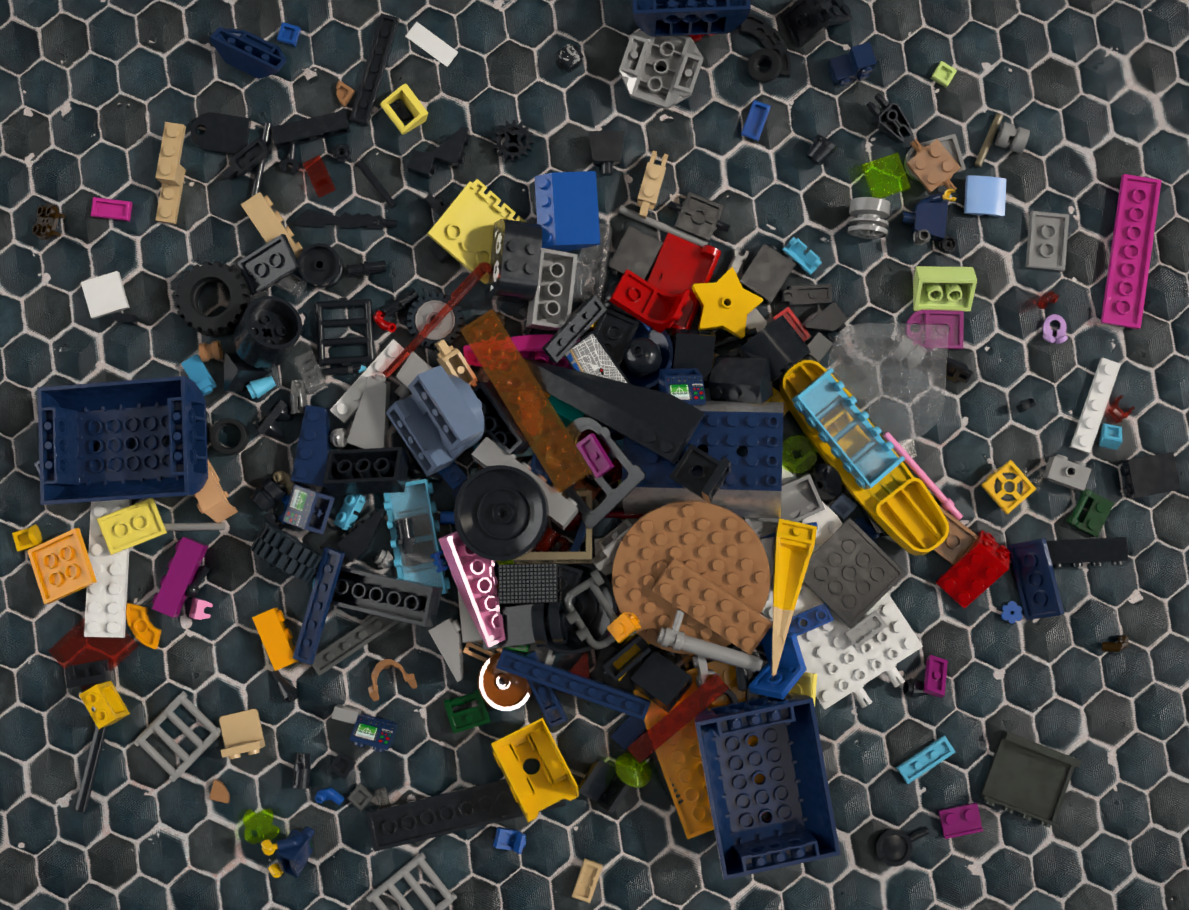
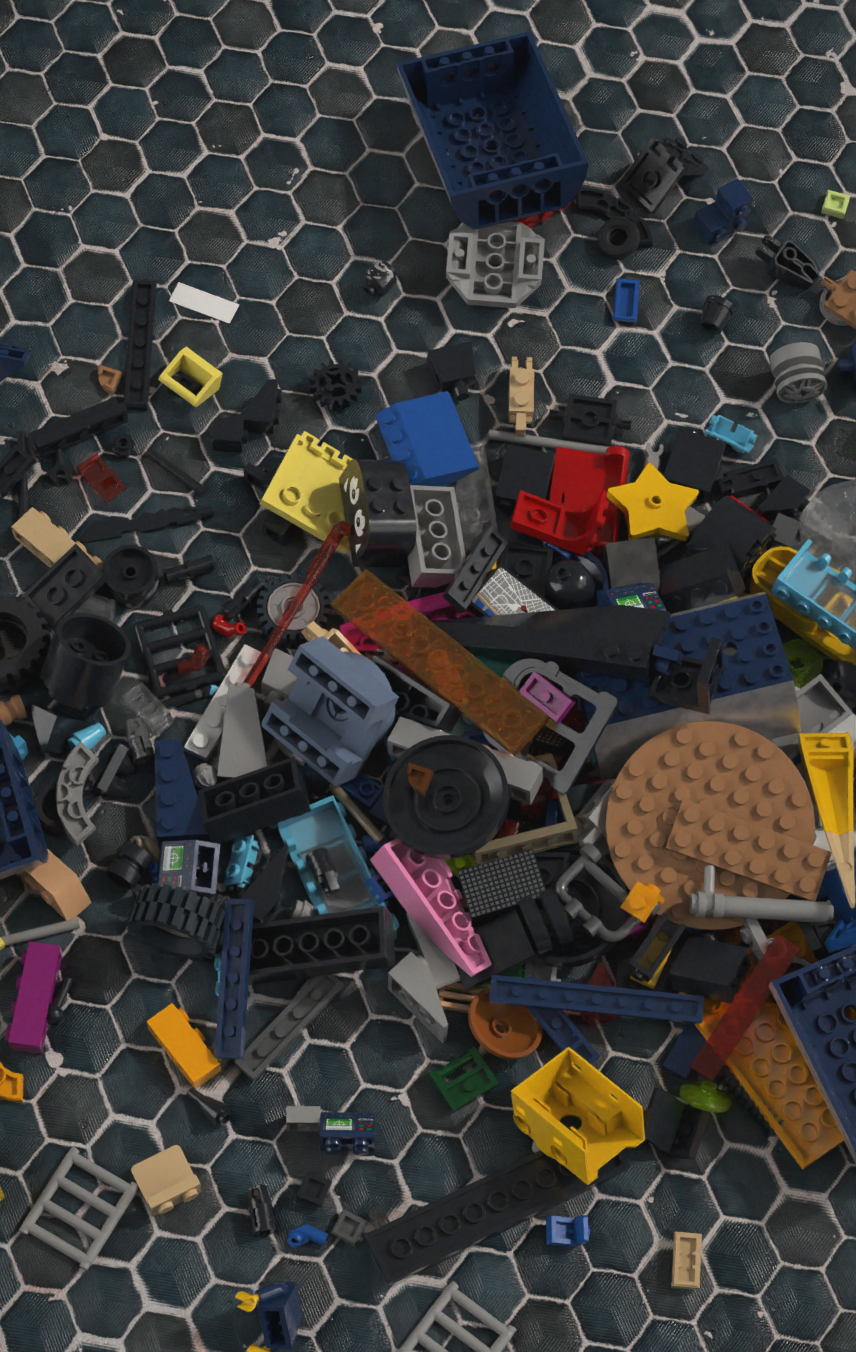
camera: 15 degrees left, 20 degrees down
(197, 609) = (68, 1032): bright pink tile -> none
(219, 792) = (153, 1268): medium nougat tile -> none
(236, 431) = (70, 791): none -> light grey tile
(262, 824) = (218, 1296): clear neon green plate -> none
(288, 34) = (22, 328): blue tile -> none
(354, 346) = (196, 662): none -> clear red arm
(385, 664) = (338, 1045): medium nougat helmet -> none
(442, 498) = (357, 813): none -> dark tan bar
(483, 495) = (419, 778): none -> reddish brown tile
(690, 453) = (666, 657): none -> dark blue tile
(885, 176) = (803, 324): clear neon green plate -> none

